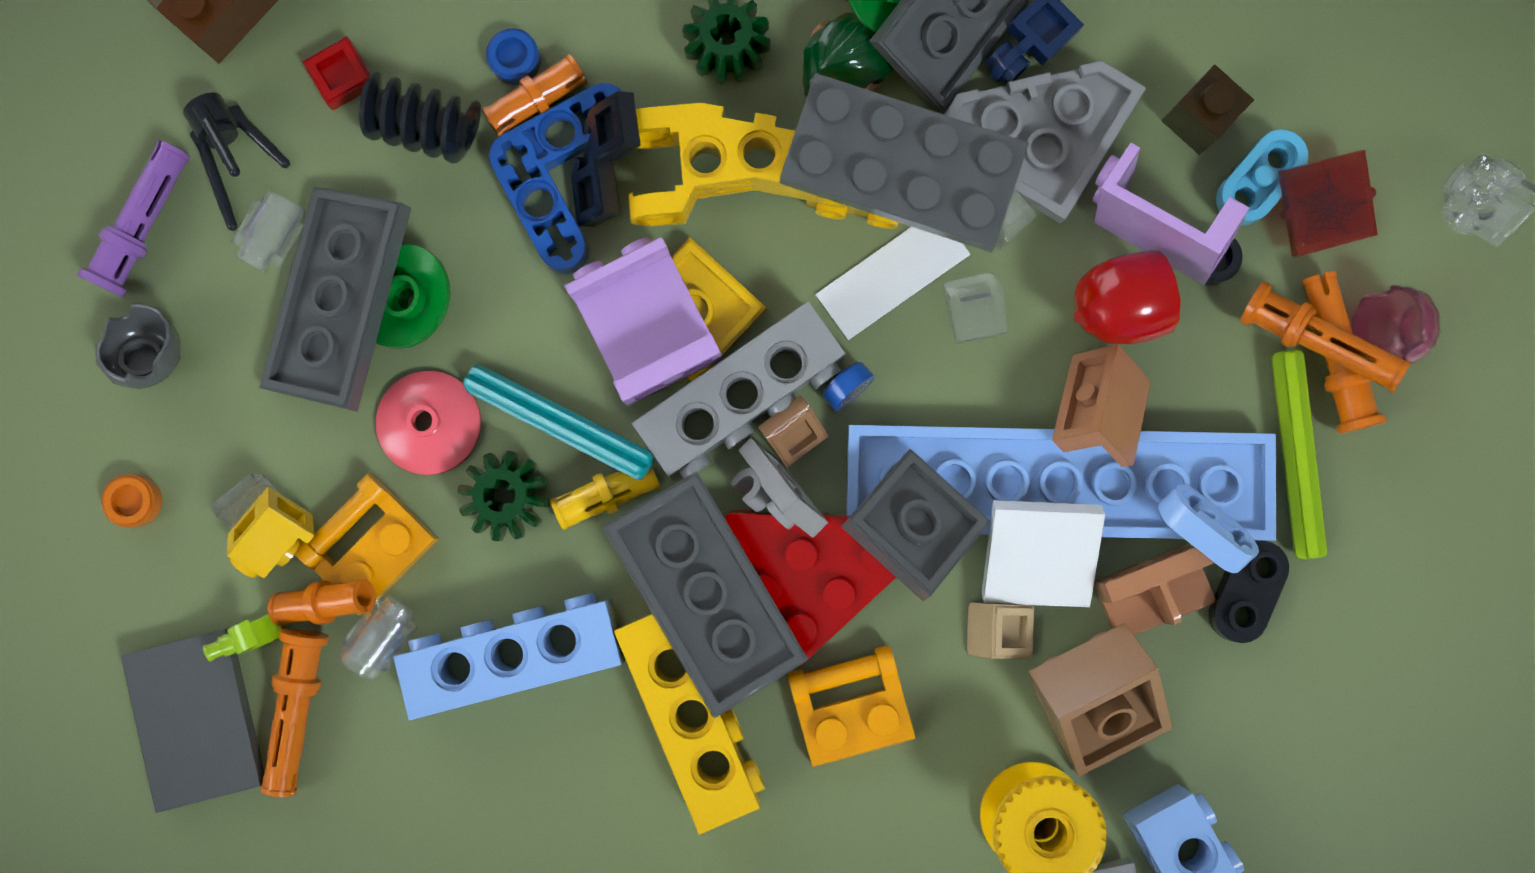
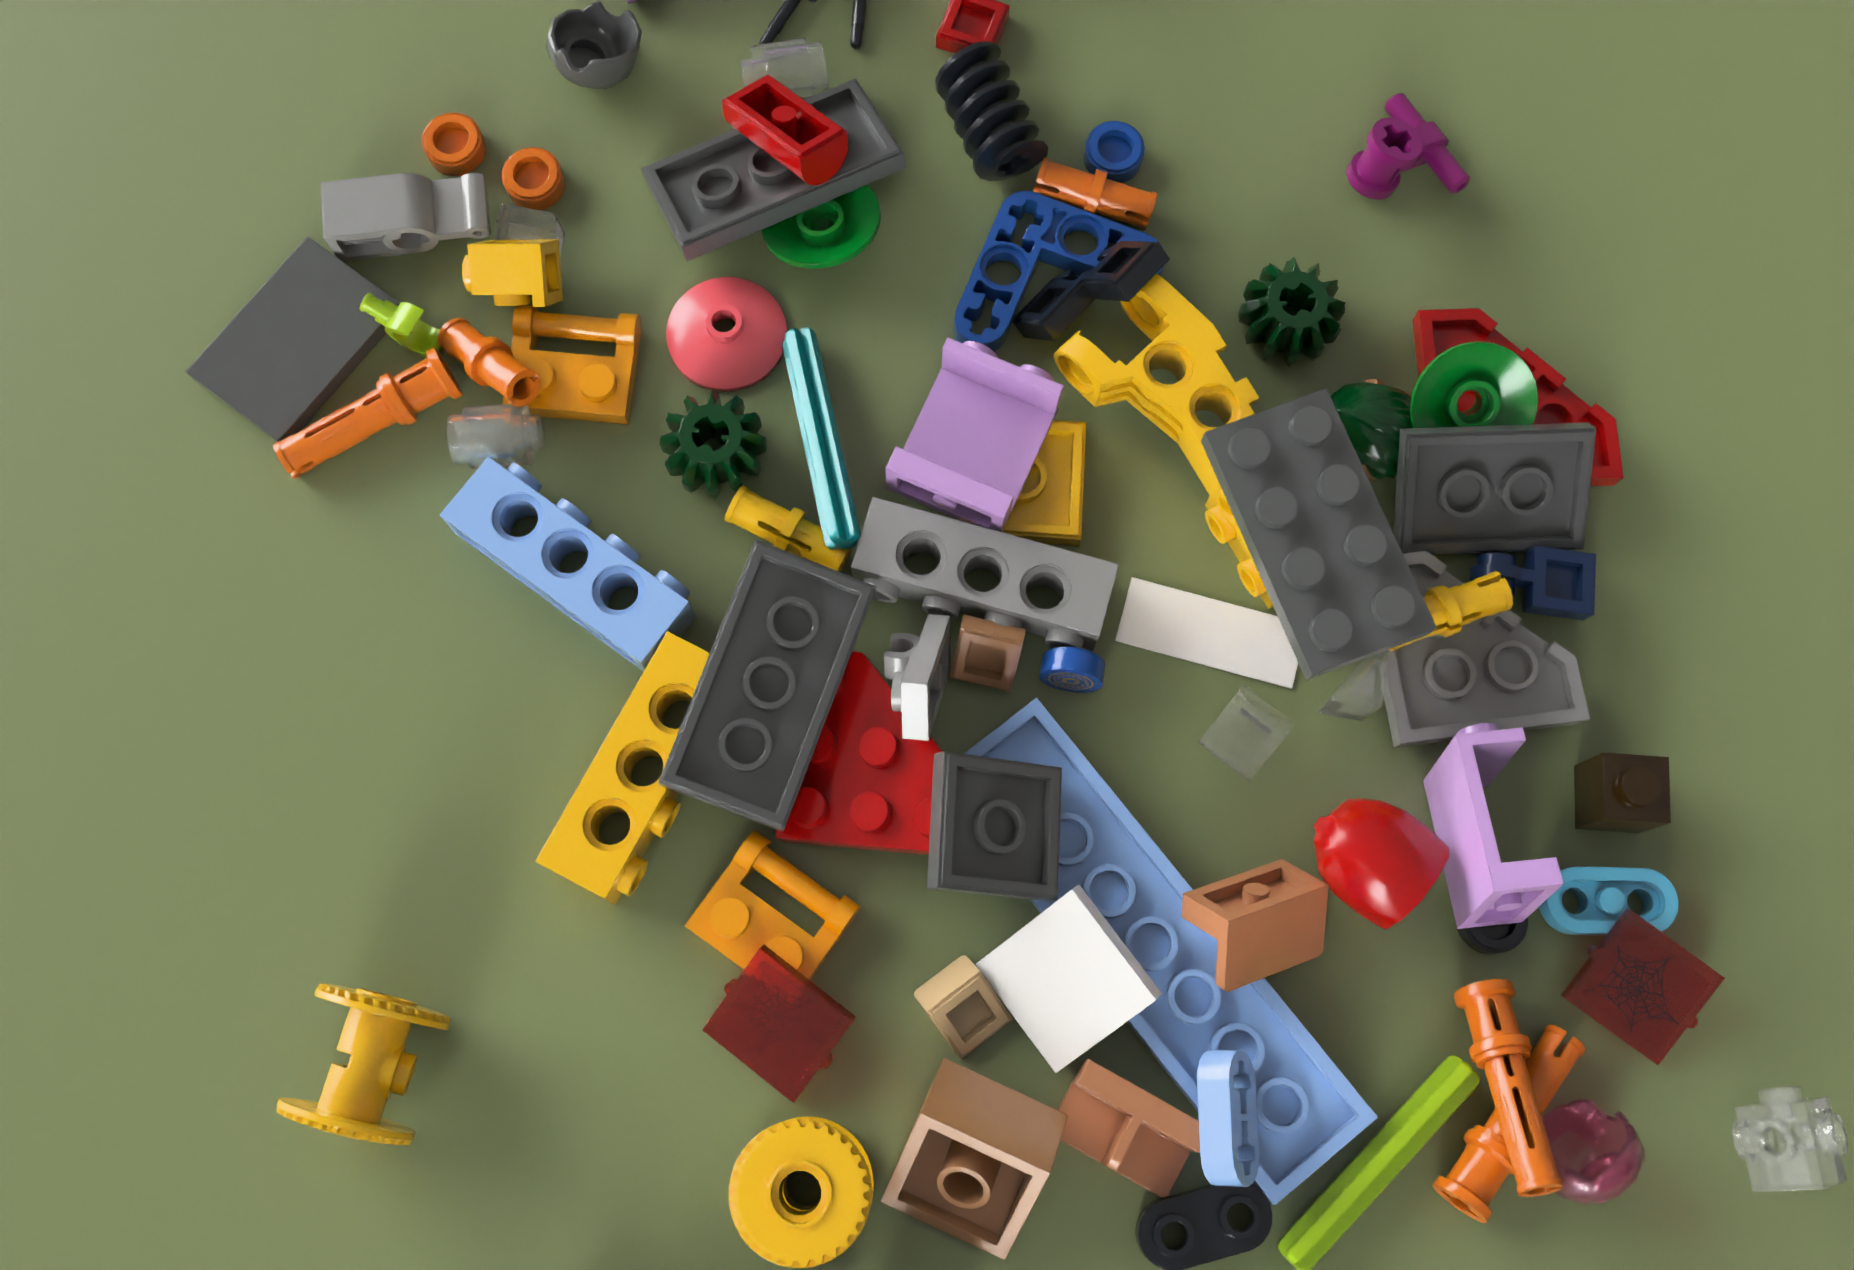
camera: 45 degrees right, 10 degrees down
(158, 577) = (401, 213): none -> light grey piece
(204, 466) = (533, 178): none -> orange tile
(319, 268) = (788, 129): none -> red brick
(922, 755) = (779, 1023): none -> clear red piece
(1013, 104) = (1466, 603): none -> yellow pin

